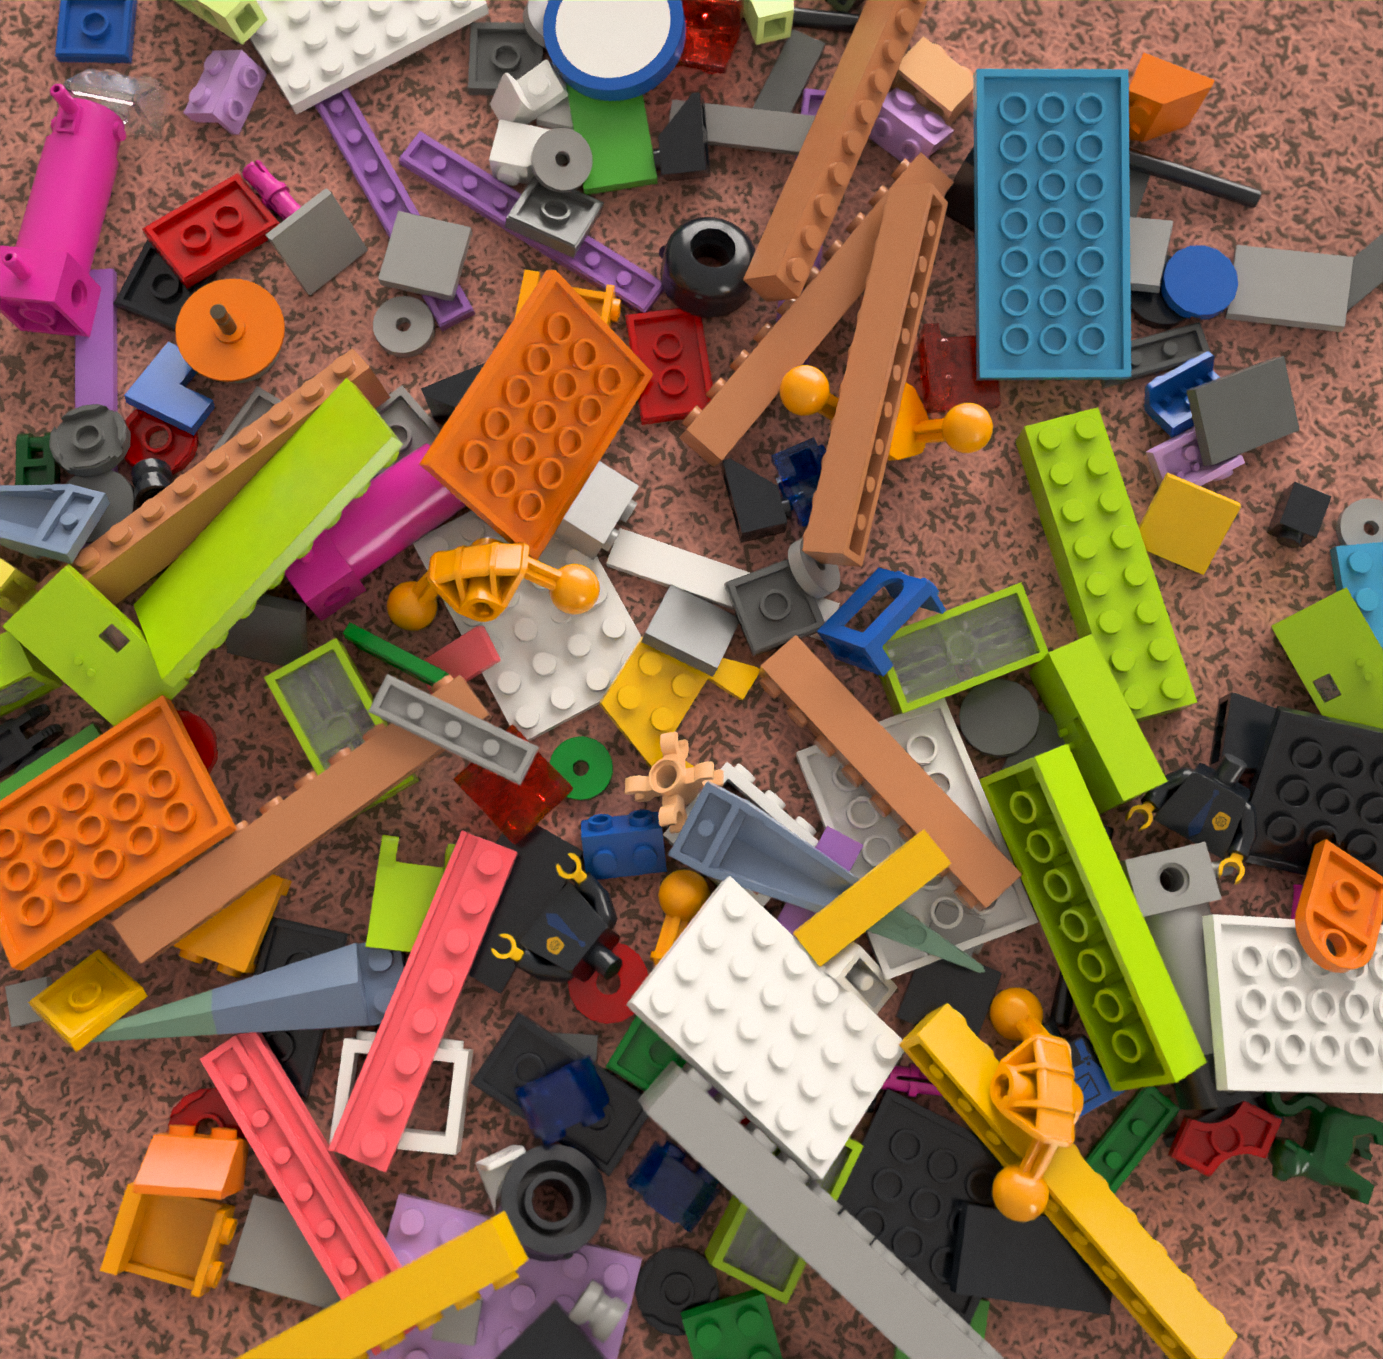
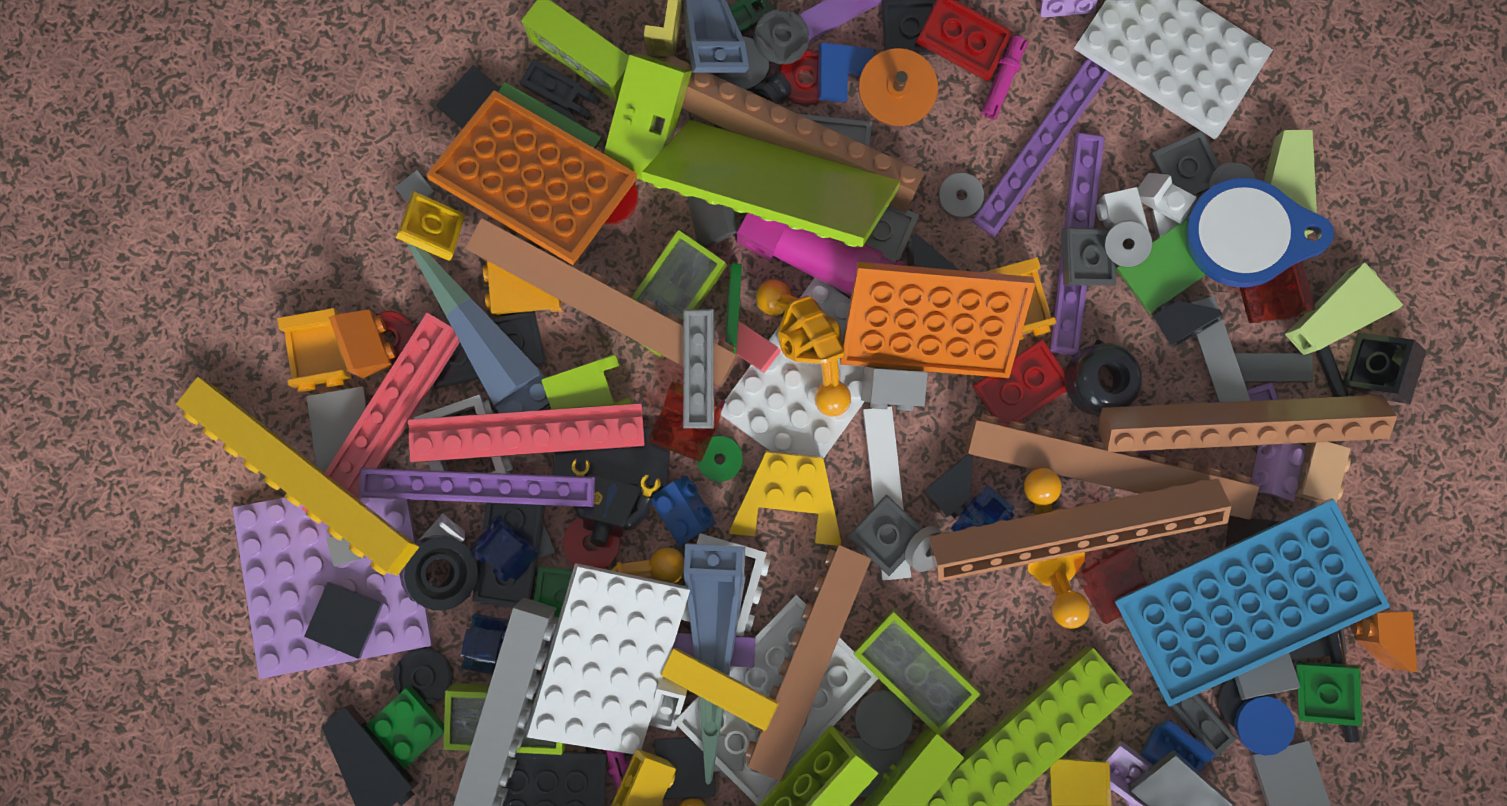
camera: 65 degrees right, 5 degrees up
(317, 241) = (988, 111): light grey tile -> none
(425, 256) = (1015, 185): light grey tile -> none
(461, 1100) = (477, 487): none -> medium lavender tile
(599, 1310) = (388, 633): light grey wheel -> none
(663, 775) = (736, 514): light nougat pin -> none
(691, 630) = (843, 487): tile -> none
(865, 648) = (883, 608): blue panel -> none
(1194, 192) = (1330, 693): none -> green plate

